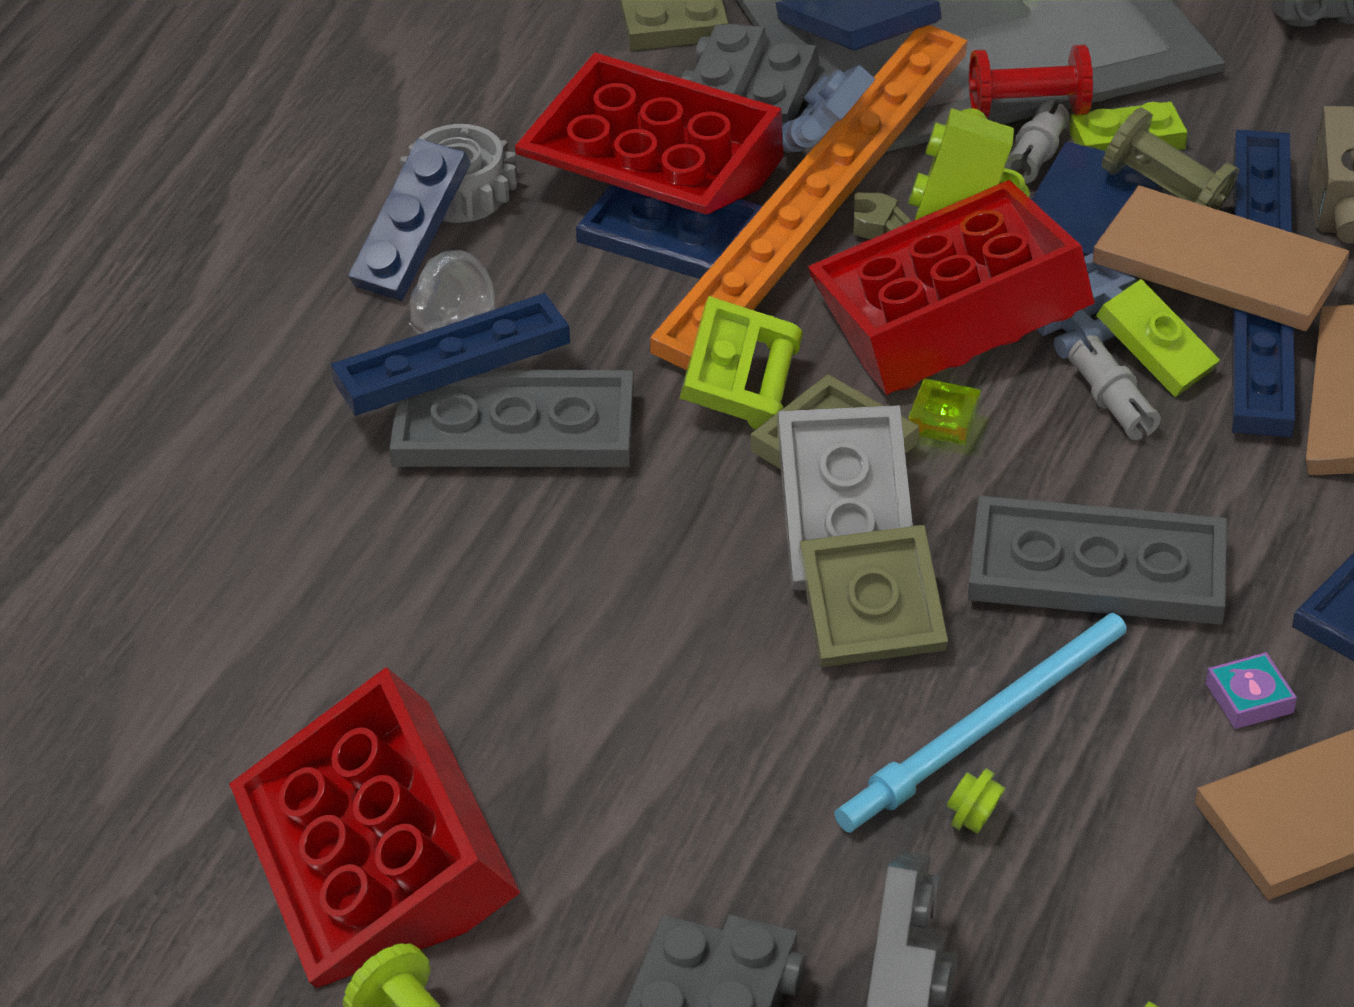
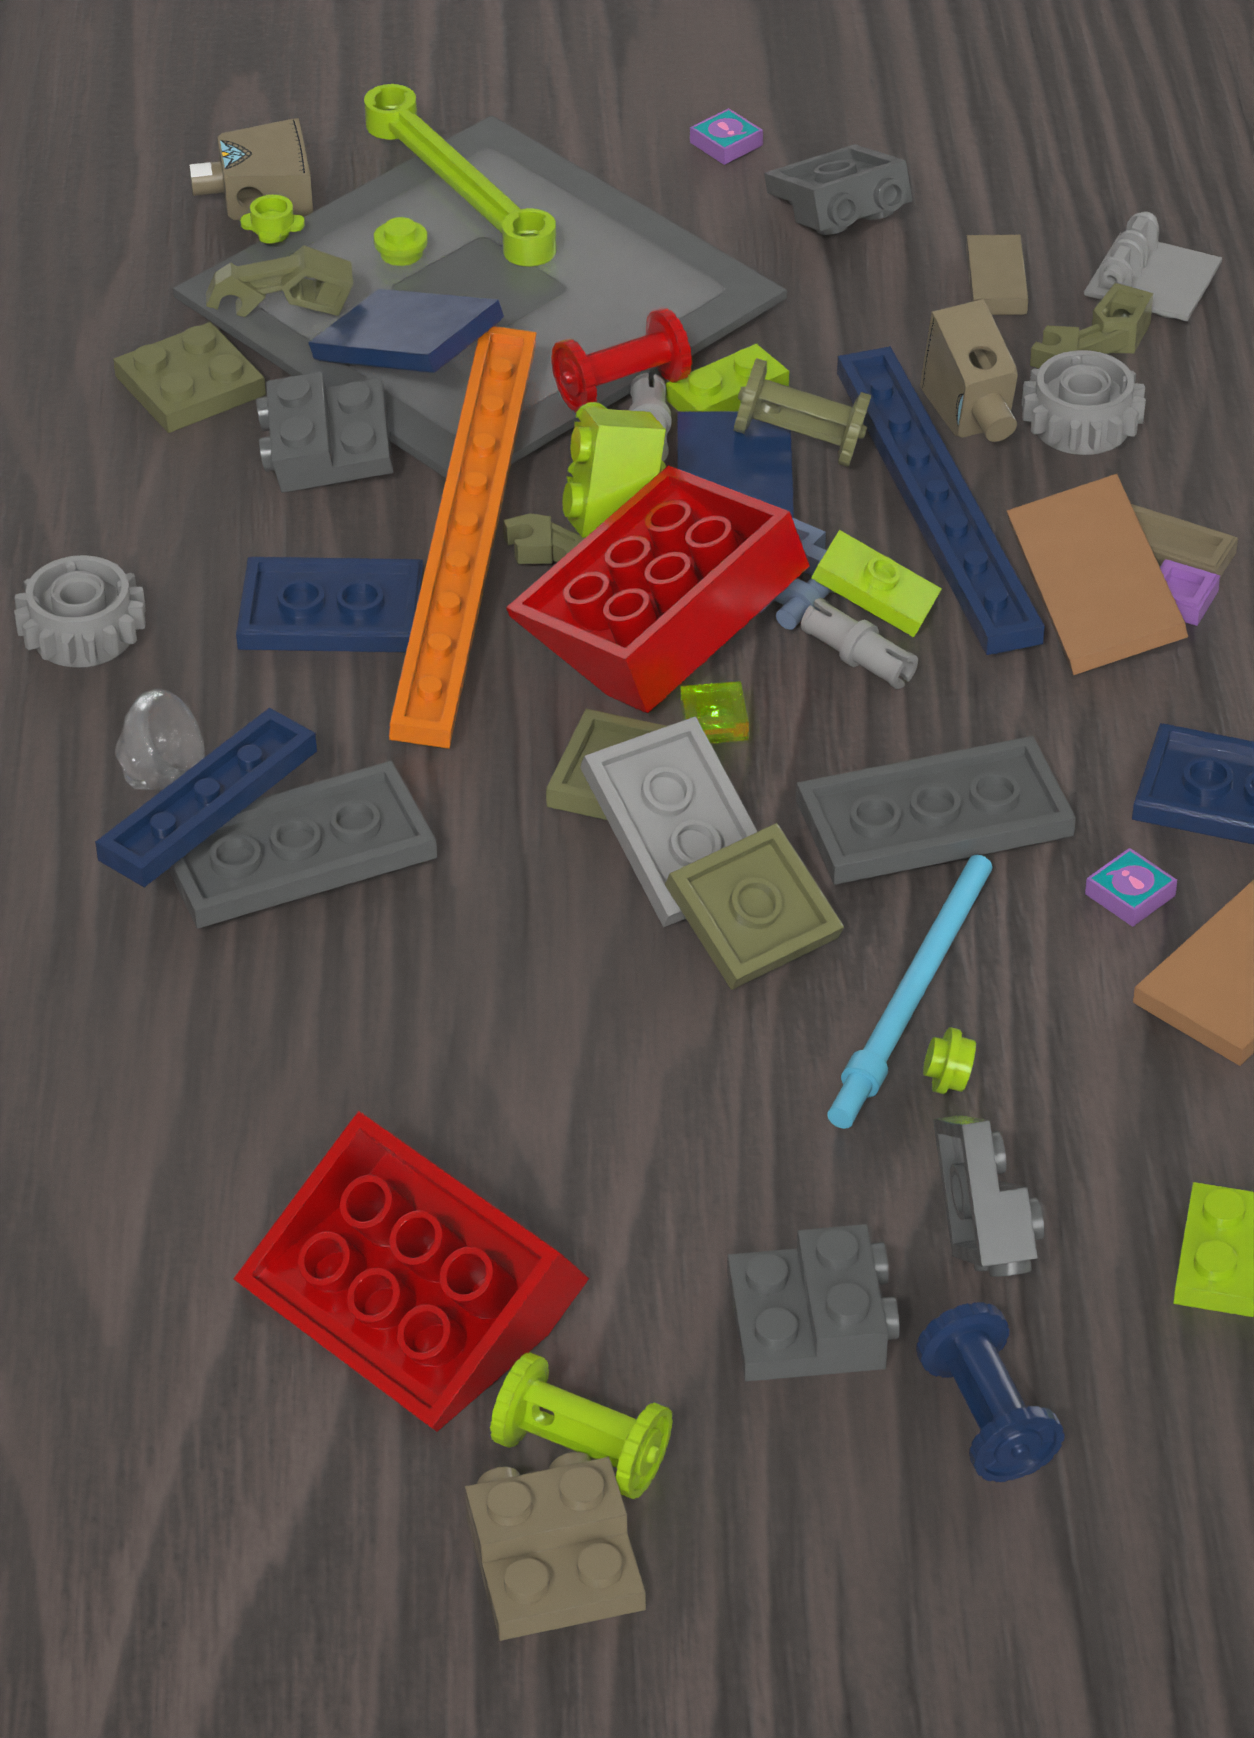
camera: 25 degrees left, 0 degrees up
(409, 219) = (67, 673): plate -> none
(658, 135) = (275, 514): red slope -> none
(724, 356) = (481, 726): lime plate -> none
(828, 103) = (434, 440): sand blue plate -> none
(1221, 257) = (898, 487): medium nougat tile -> none

